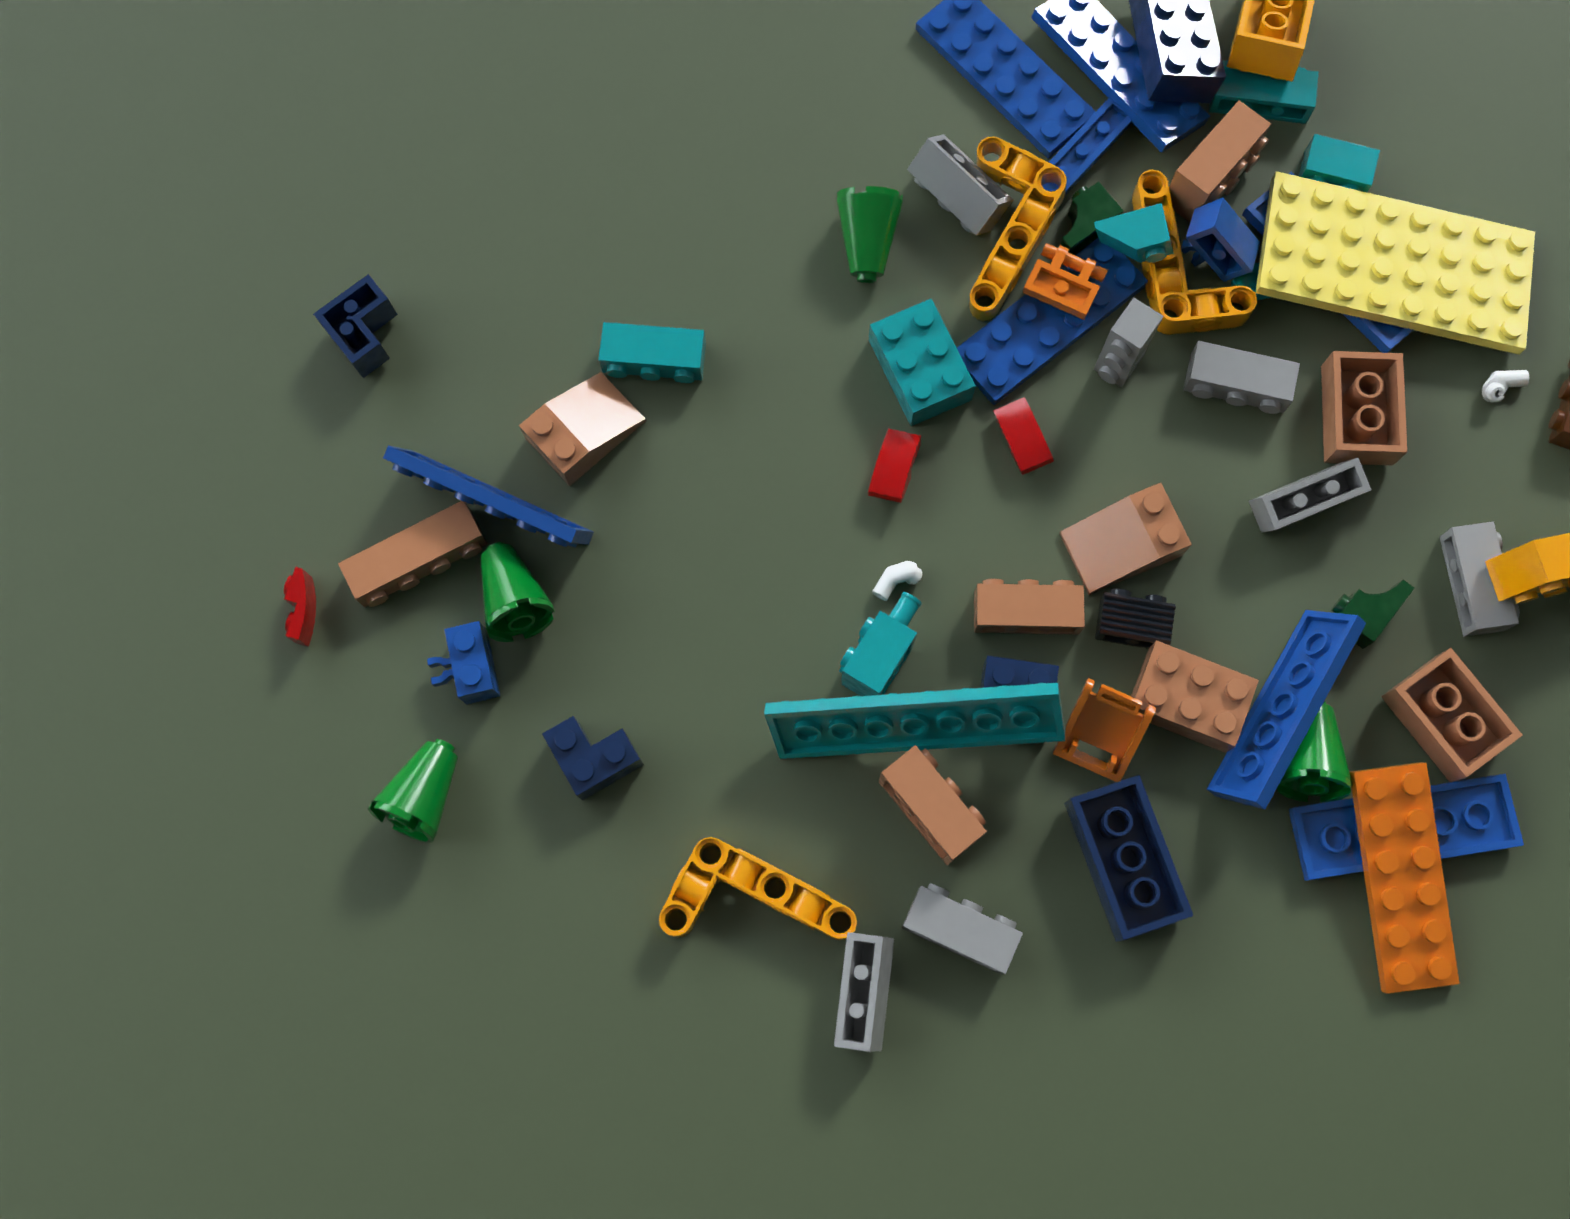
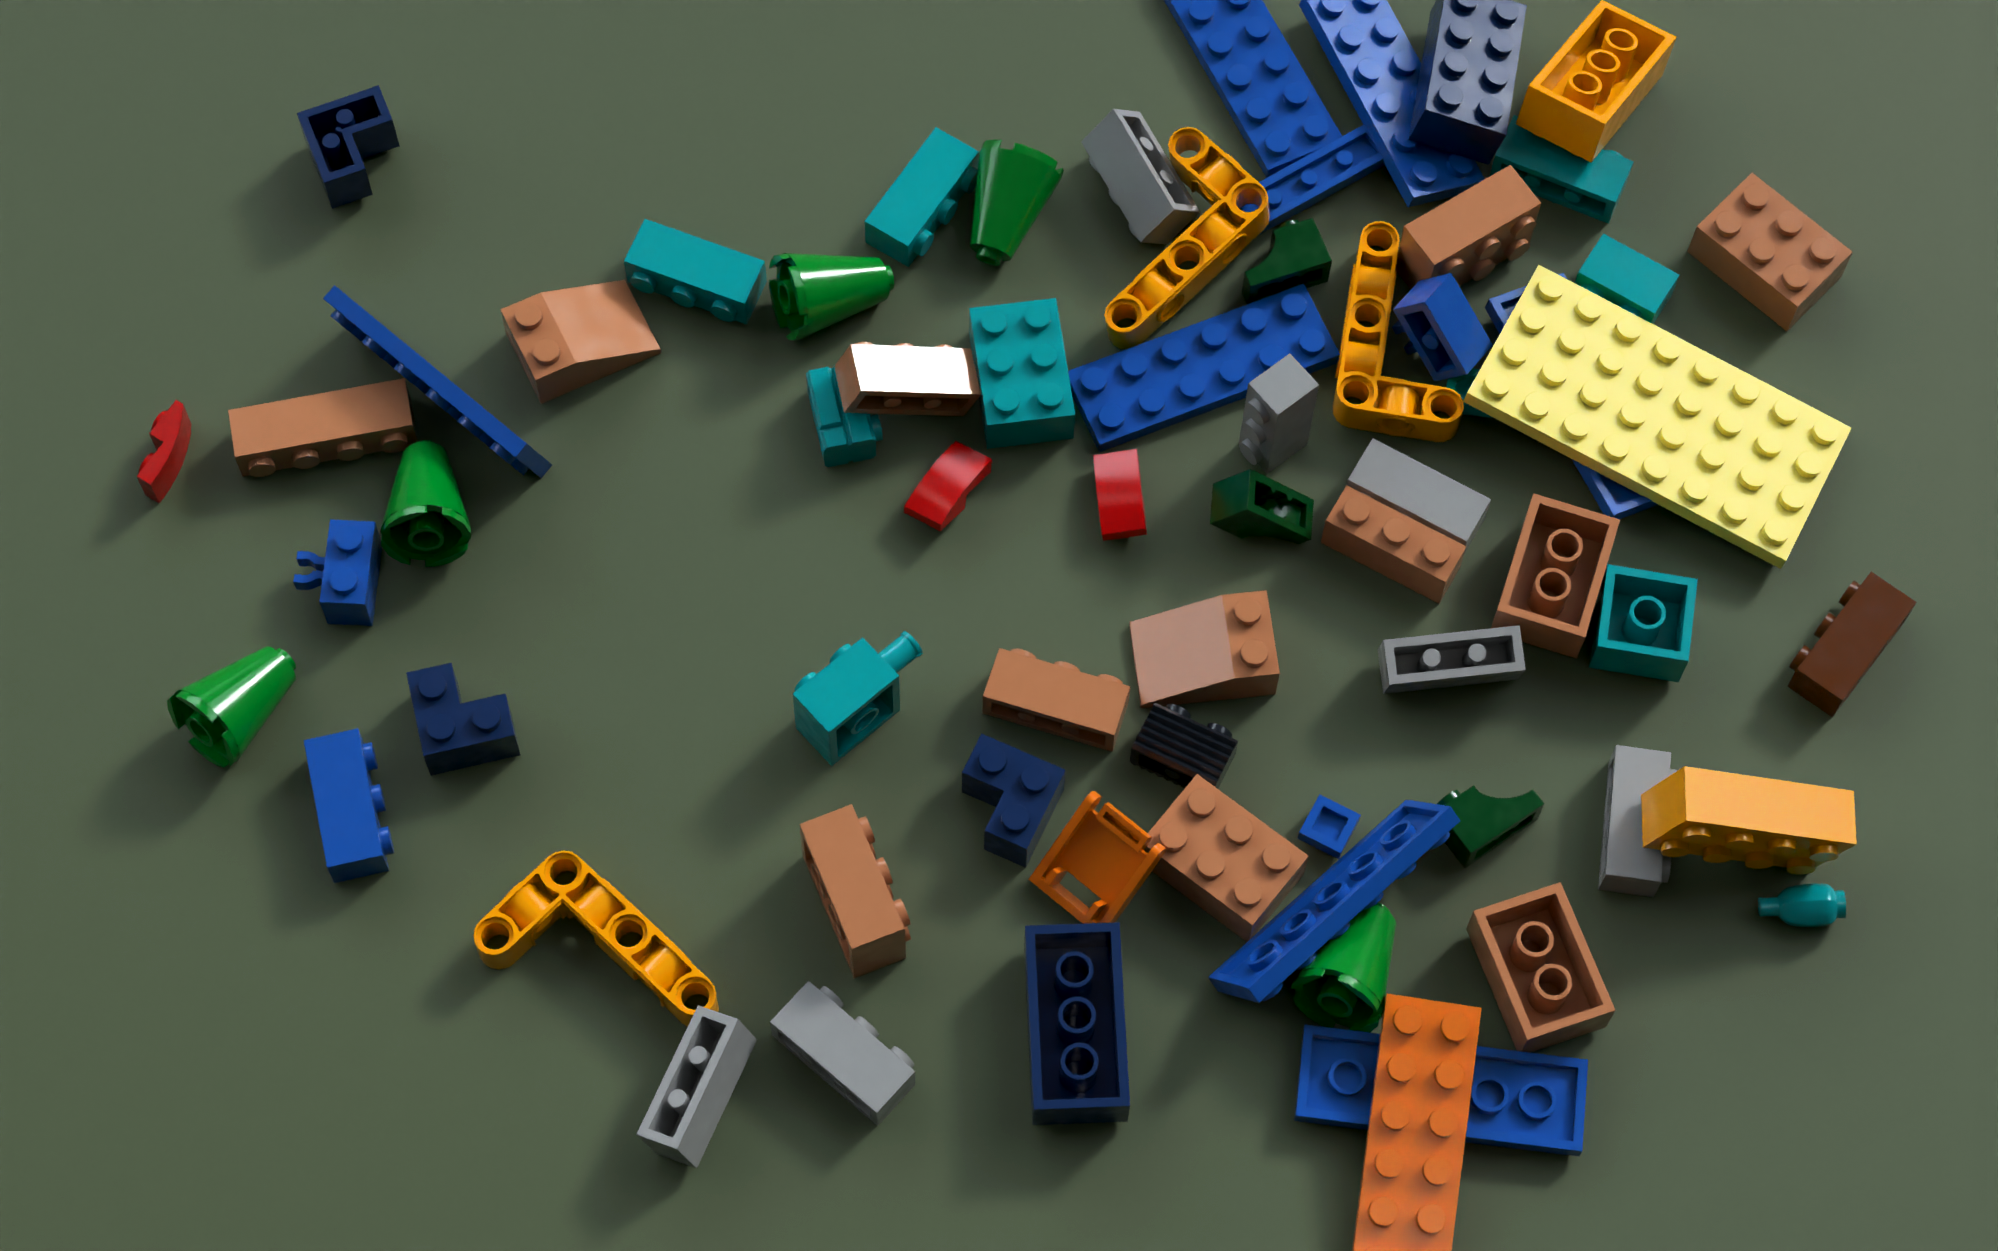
camera: 10 degrees right, 10 degrees down
(530, 845) = (348, 805): none -> blue brick
(754, 339) = (825, 289): none -> green cone
(798, 432) = (840, 434): none -> teal brick
(803, 245) = (922, 197): none -> teal brick
(840, 393) = (907, 379): none -> brick
(896, 574) = (905, 615): white arm -> none
(921, 719) = (884, 781): teal plate -> none
(1061, 288) = (1223, 331): orange plate -> none
(1130, 417) = (1261, 507): none -> dark green arch
(1137, 234) = (1337, 289): teal slope -> none
(1236, 417) = (1393, 544): none -> nougat brick
(1258, 648) = (1329, 826): none -> blue plate
(1435, 113) = (1769, 251): none -> nougat brick
(1443, 426) = (1643, 623): none -> teal brick
(1500, 381) = (1748, 595): white arm -> none

